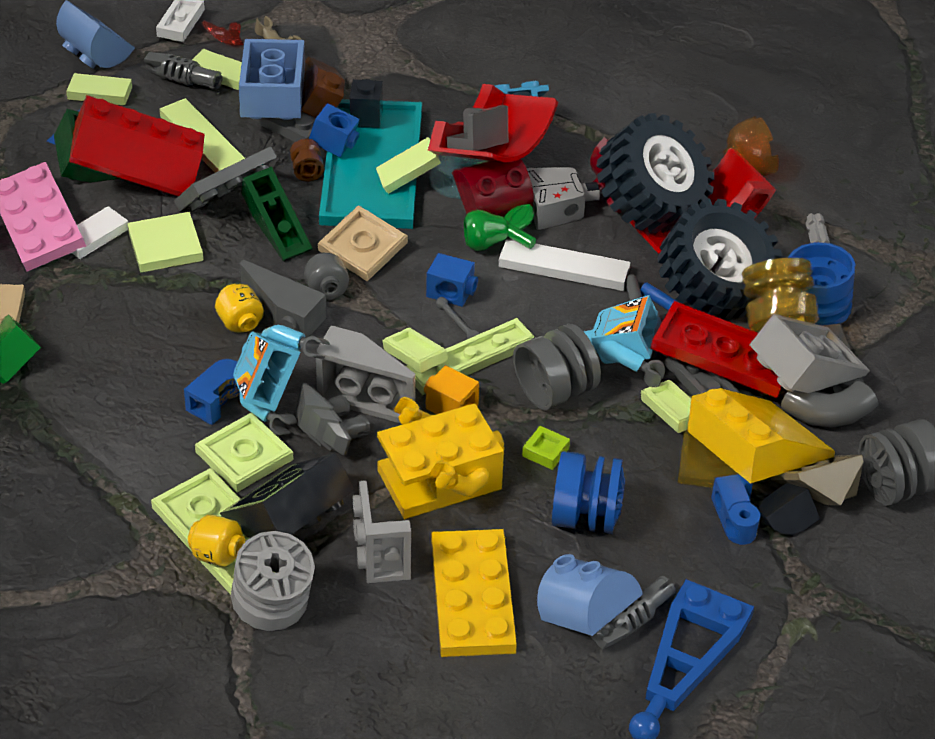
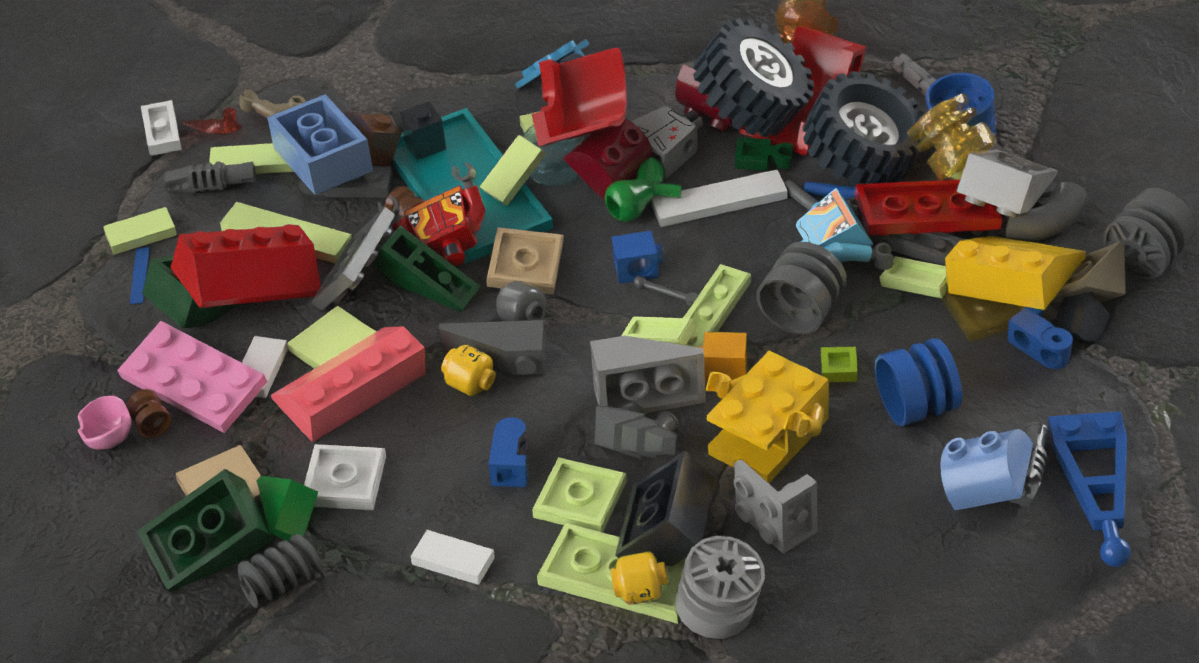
camera: 25 degrees left, 0 degrees up
(80, 347) = (345, 476): none -> white tile
(91, 37) = (93, 183): medium blue brick -> none
(103, 451) = (452, 557): none -> white tile
(146, 277) = (352, 381): none -> coral slope
(266, 368) = (557, 408): medium azure torso -> none
(317, 183) = (447, 220): none -> red torso
(335, 130) = (417, 167): blue brick -> none
(473, 593) = (883, 516): yellow plate -> none
(482, 129) = (573, 105): dark grey panel -> none
(626, 241) = (757, 154): none -> dark green plate

